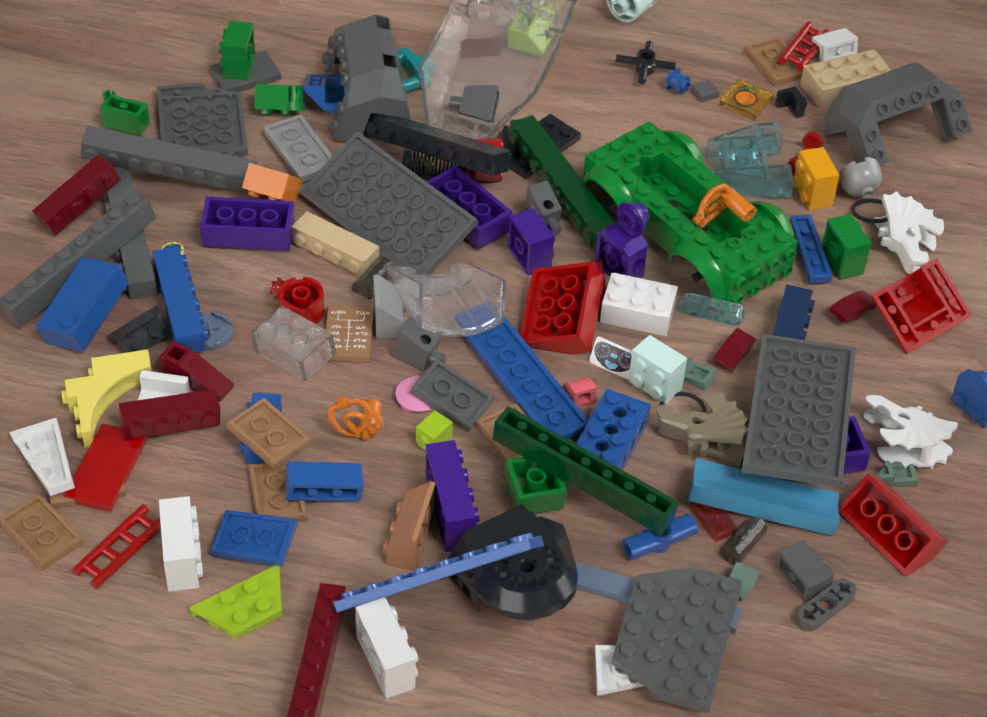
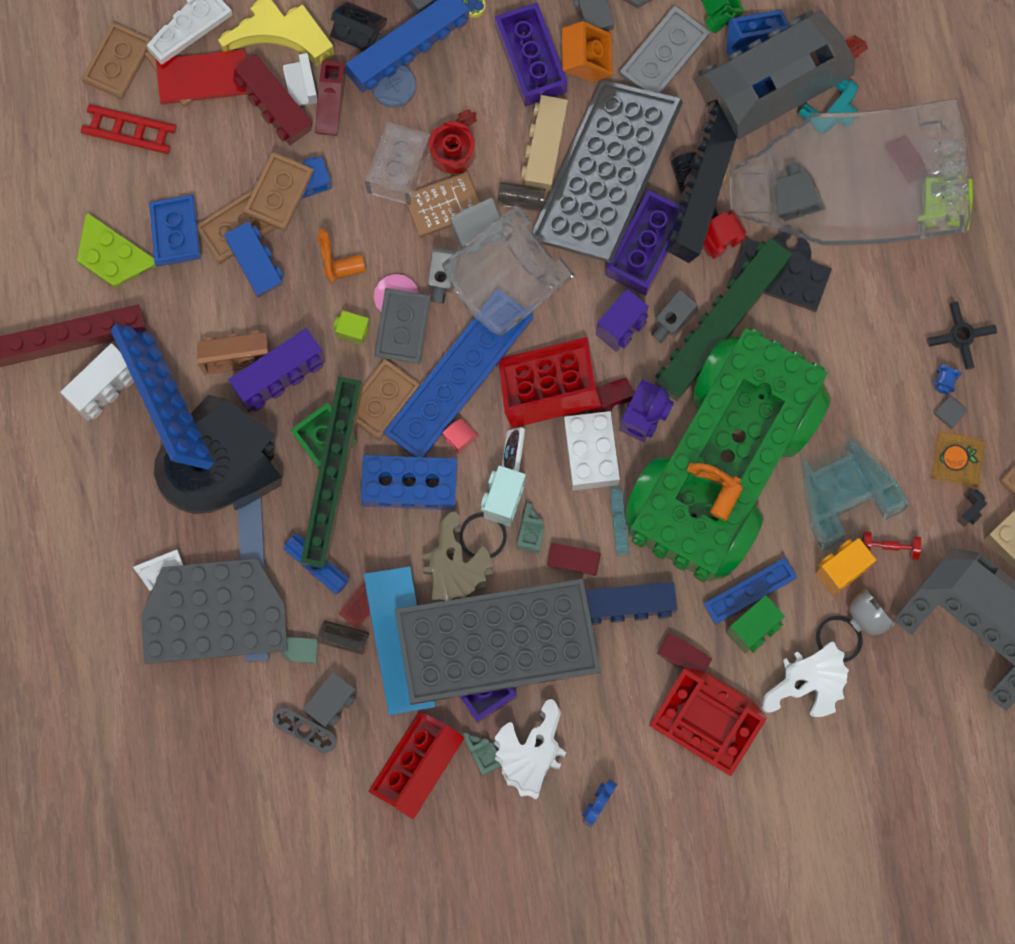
camera: 70 degrees right, 30 degrees up
(180, 543) = (135, 175): white brick -> none

